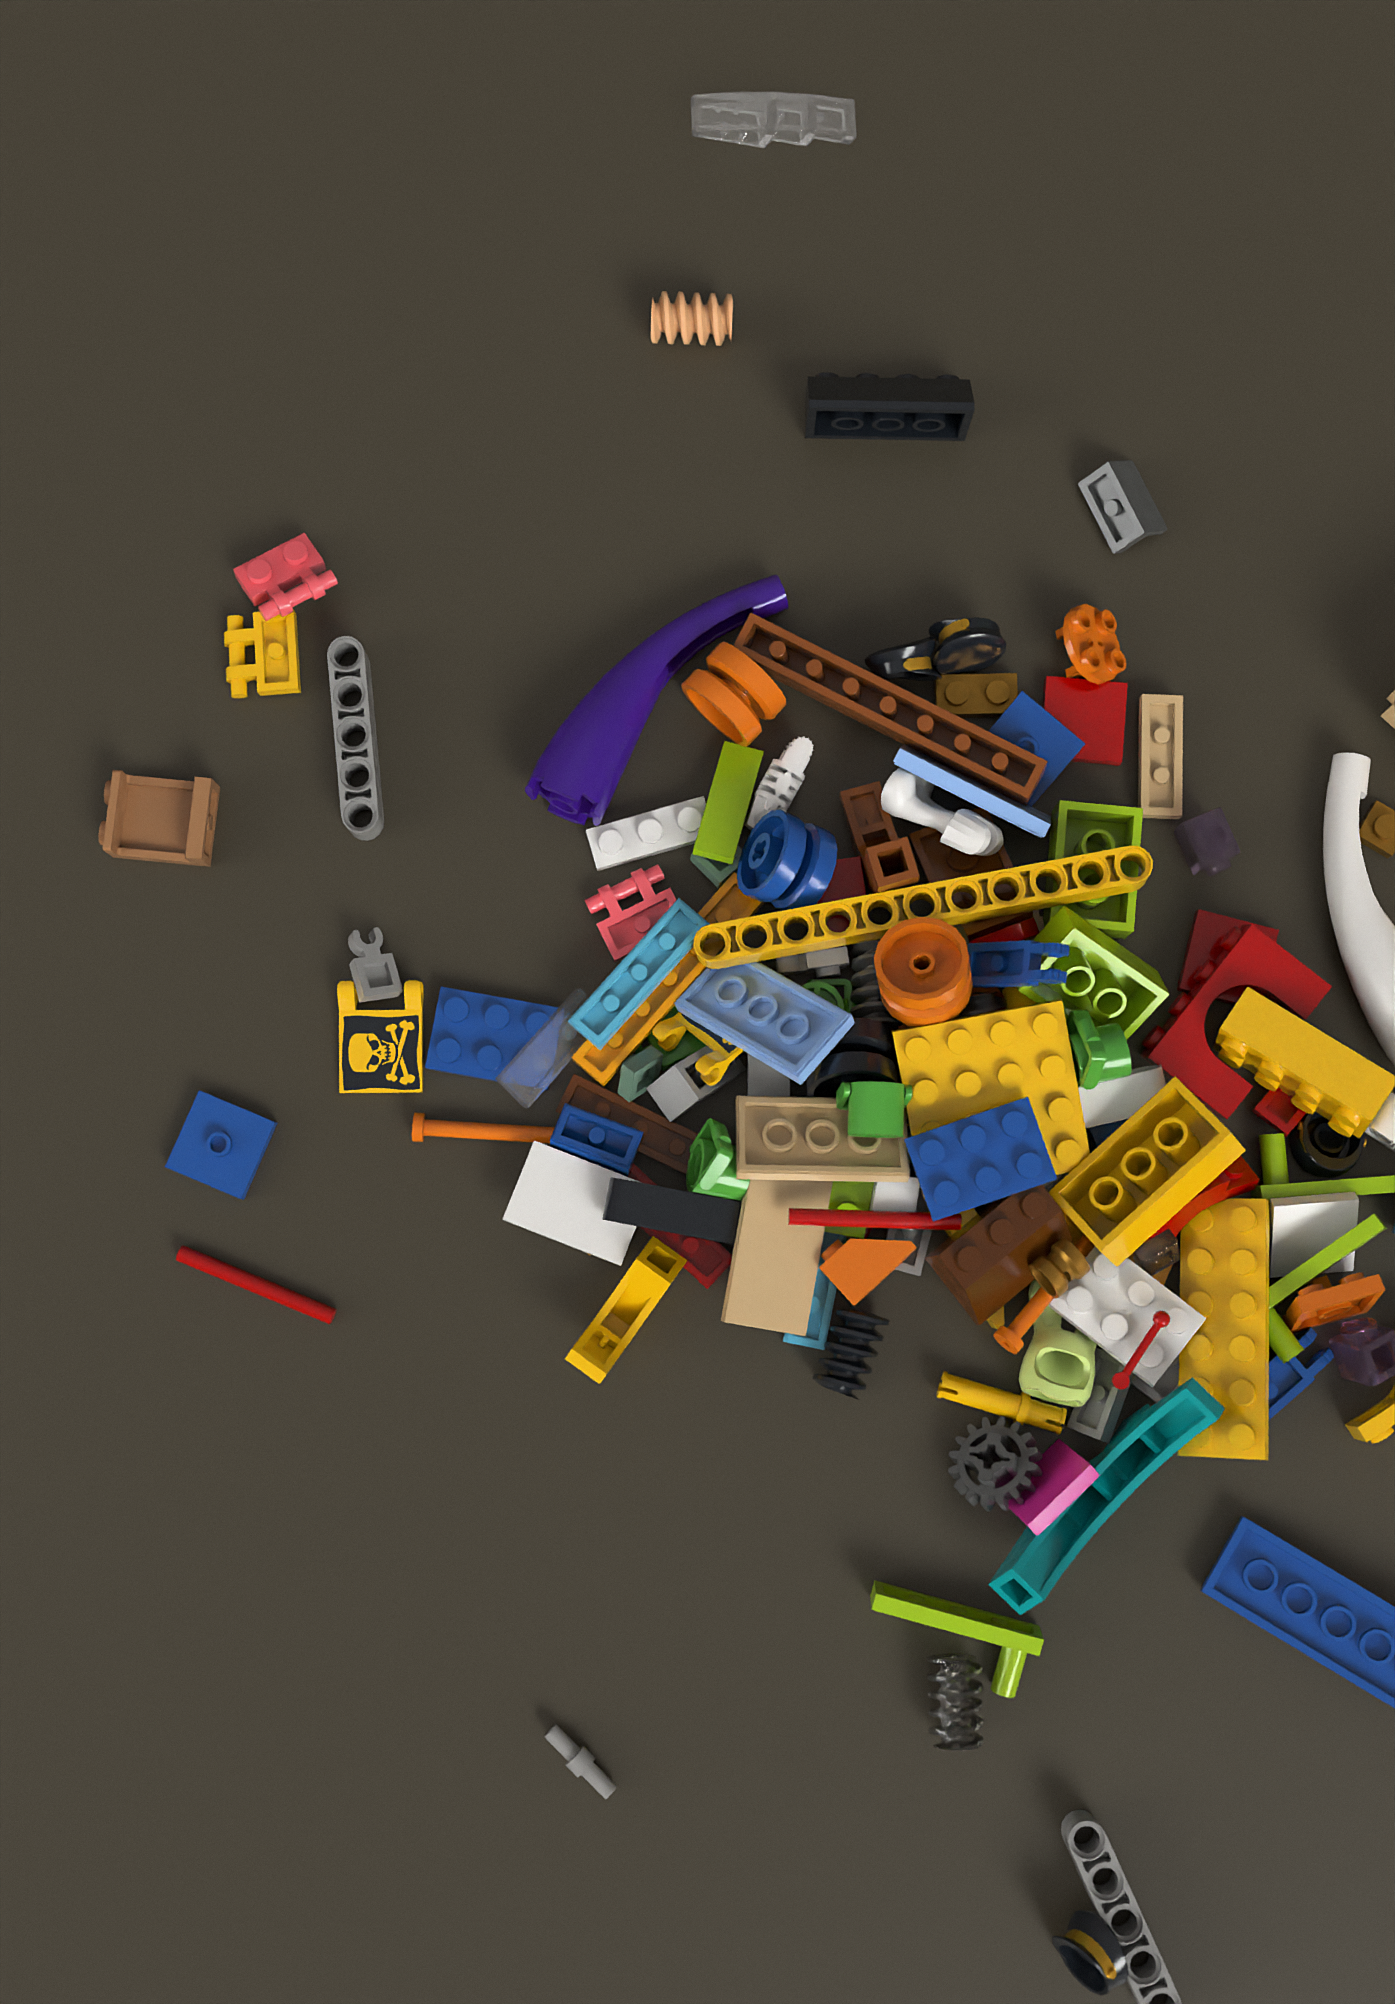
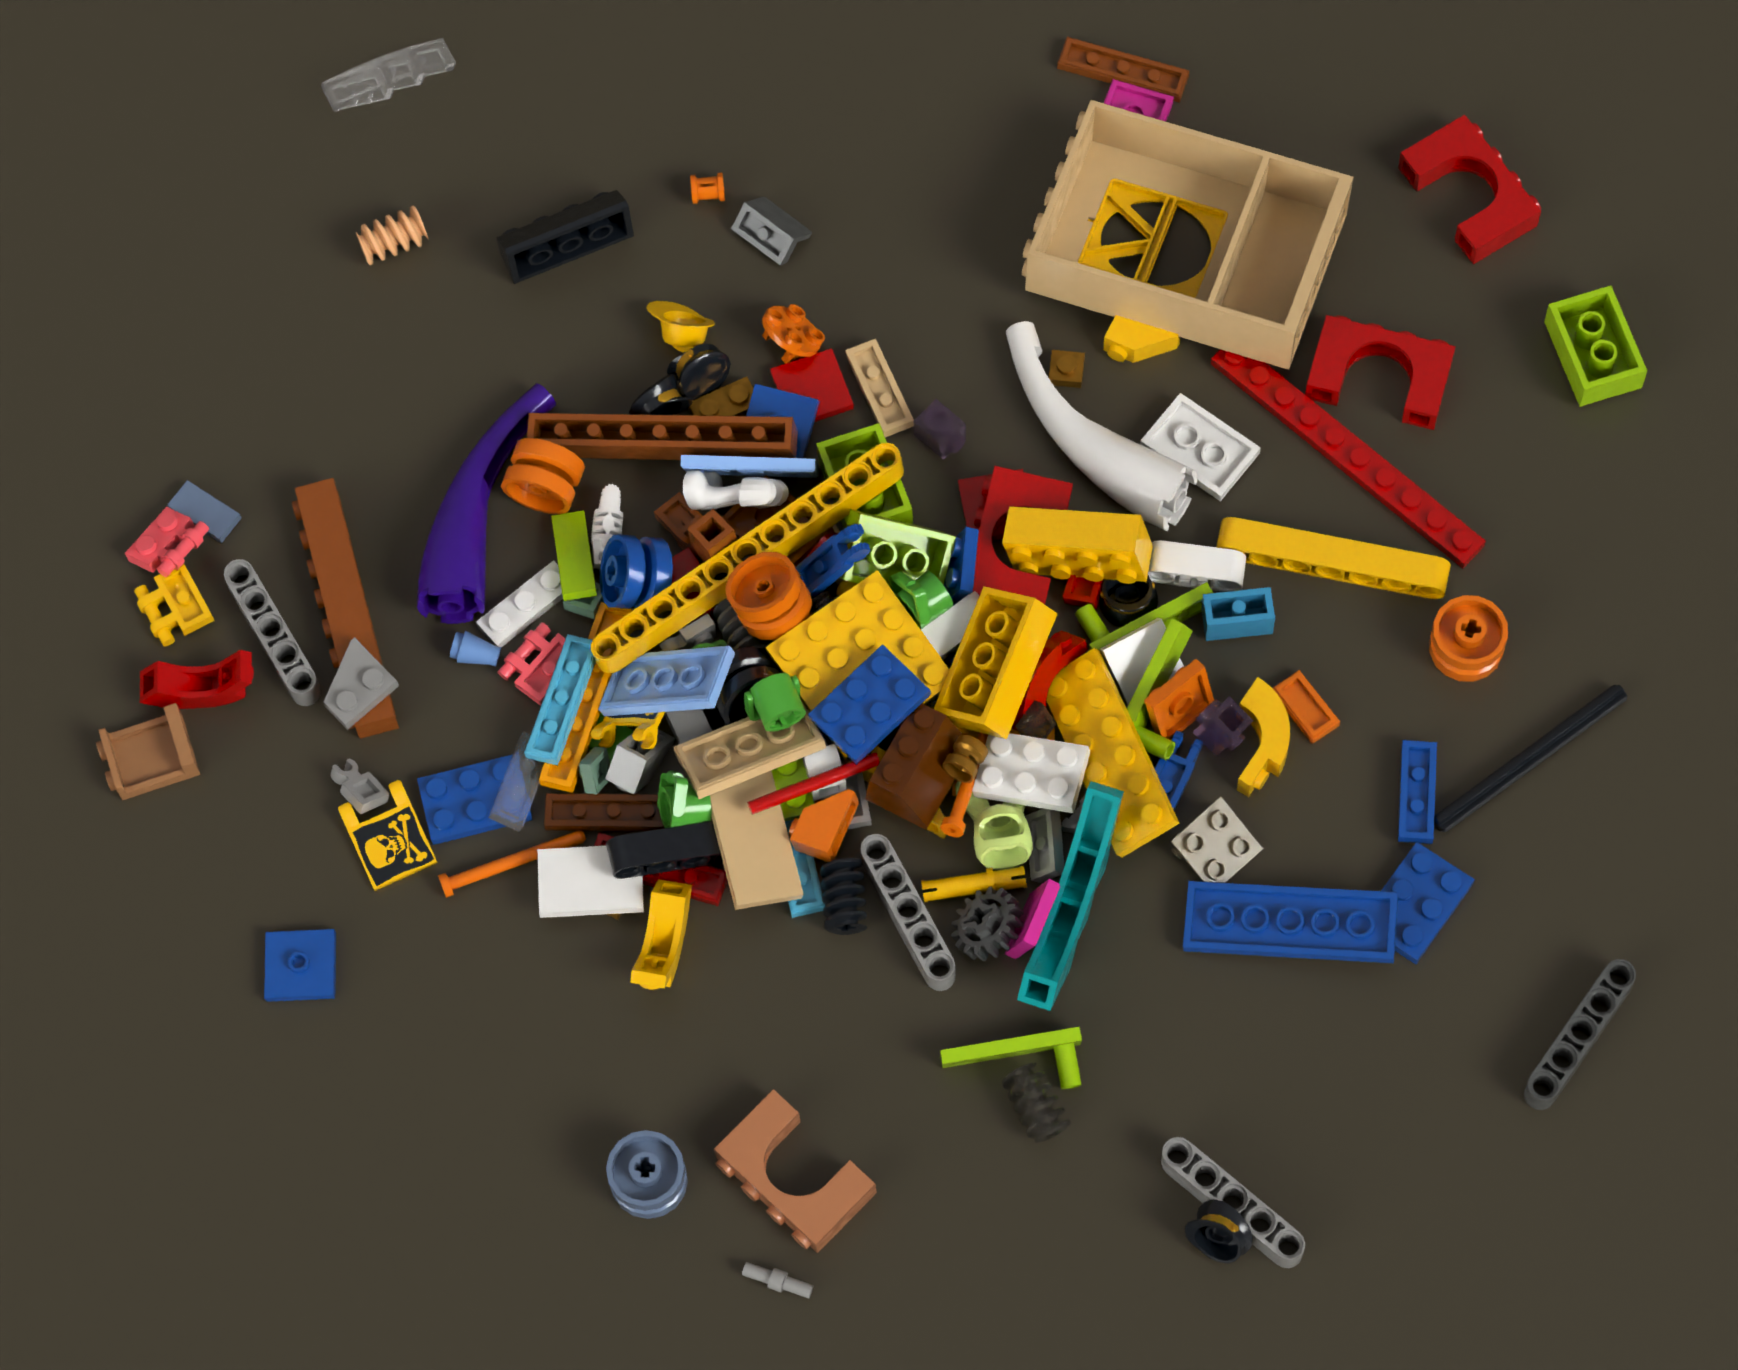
camera: 20 degrees left, 15 degrees down
(244, 763) = (197, 685): none -> red arch
(256, 1284) = (372, 1053): red bar -> none
(344, 556) = (203, 507): none -> sand blue tile
(418, 853) = (358, 685): none -> light grey wing
(448, 746) = (340, 587): none -> dark orange brick
(486, 1604) = (667, 1178): none -> sand blue wheel
(569, 863) = (474, 650): none -> medium blue cone
(596, 1139) = (583, 828): blue slope -> none
(649, 1711) = (811, 1217): none -> nougat arch
(924, 1421) = (906, 896): none -> light grey beam
(970, 576) = (680, 325): none -> yellow piece
(1073, 422) = (707, 188): none -> orange bush
(1121, 1379) = (1044, 811): red hinge -> none
(1158, 1033) = (961, 568): none -> blue plate
(1293, 1484) = (1216, 843): none -> hinge

